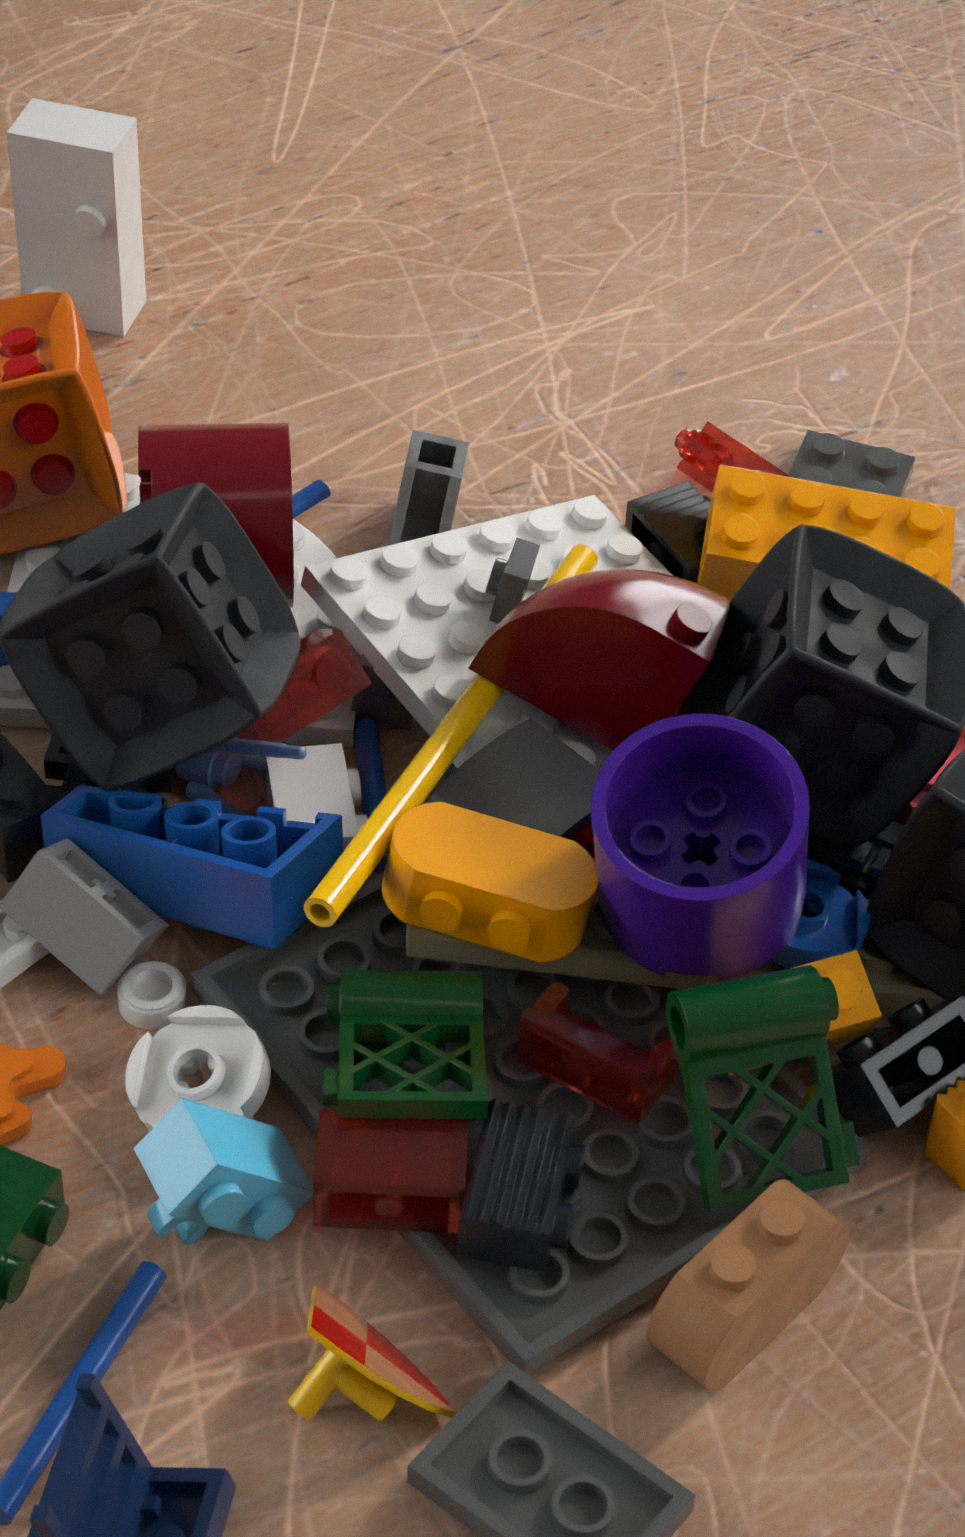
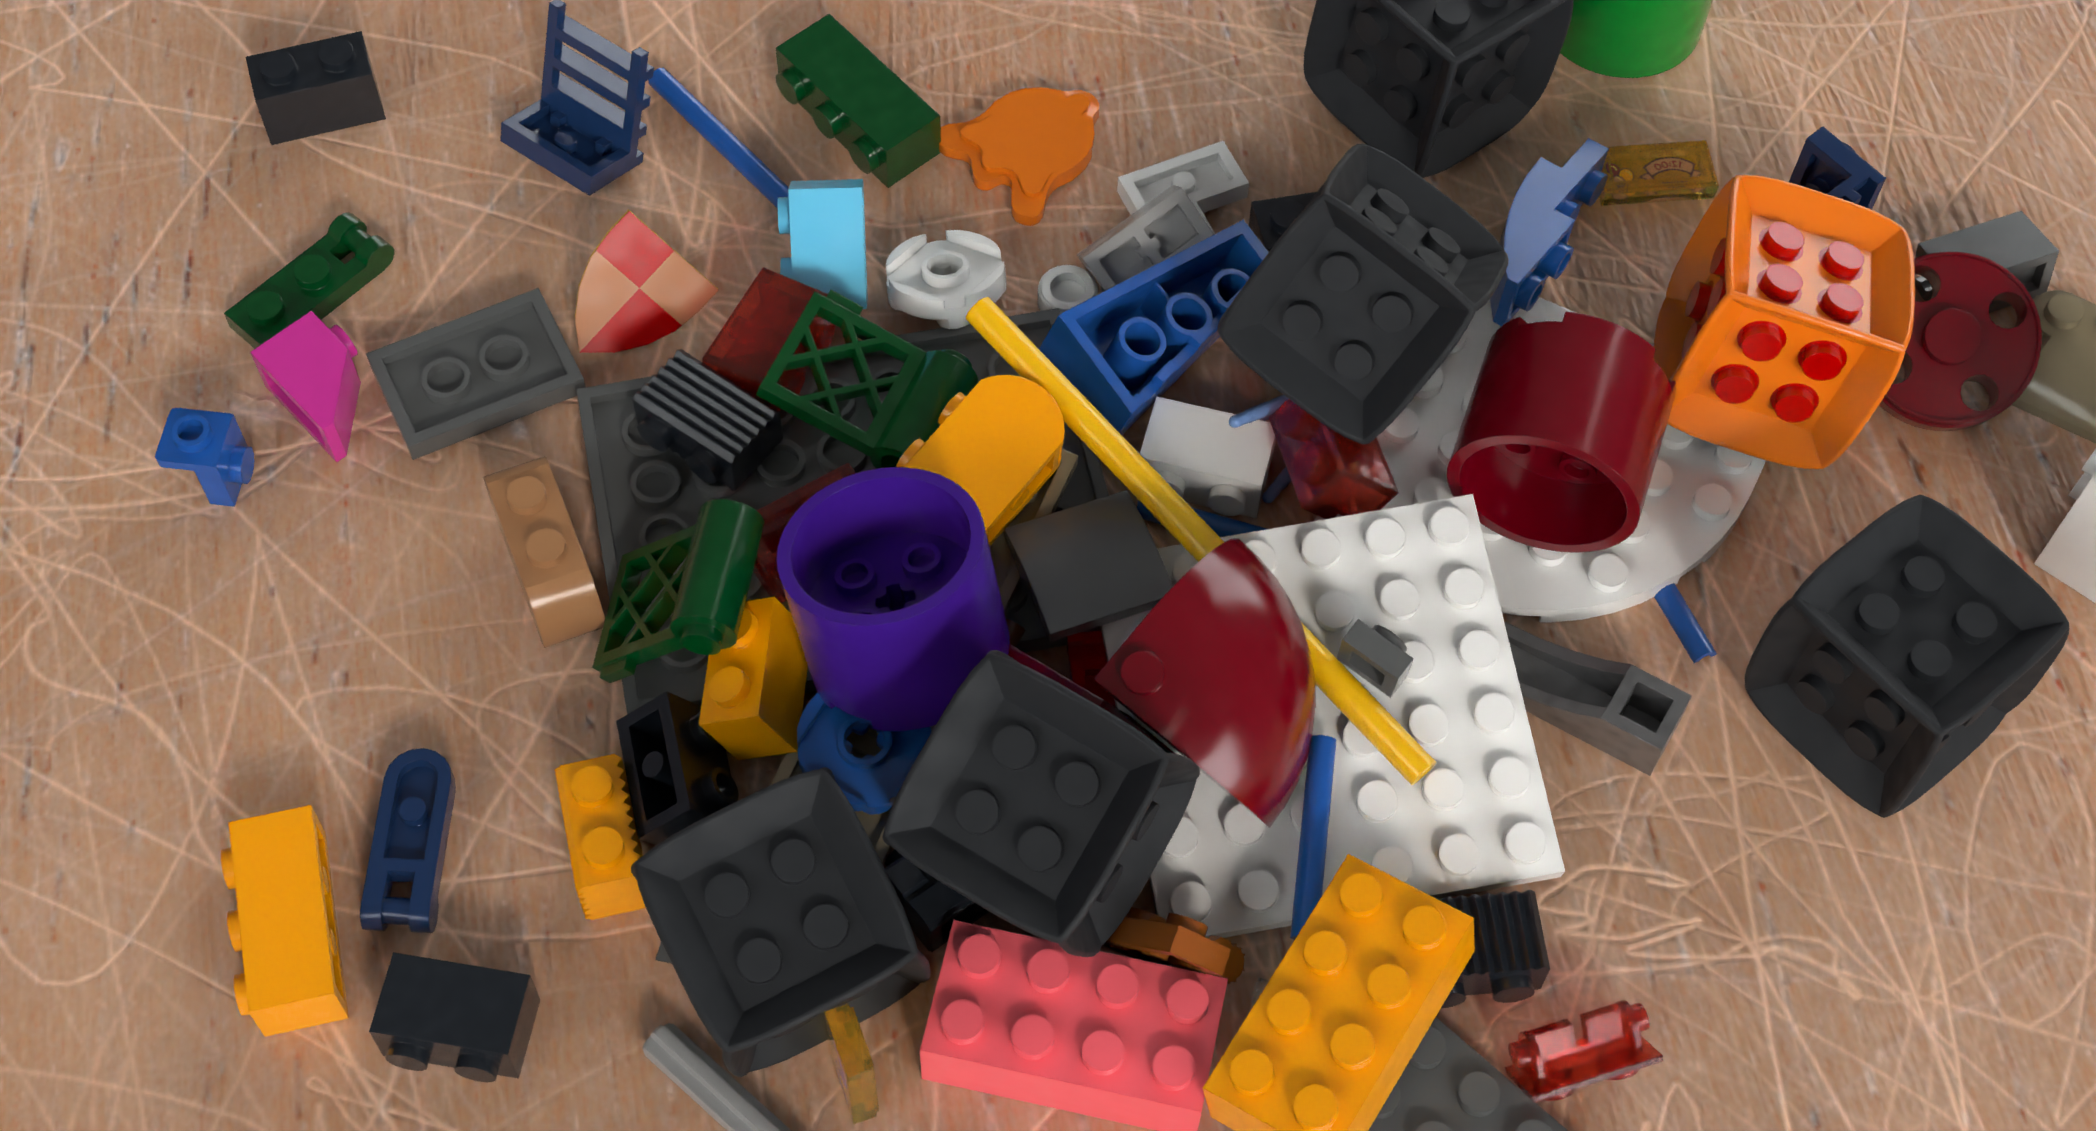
camera: 115 degrees right, 15 degrees up
(308, 326) = (1903, 654): none -> black piece

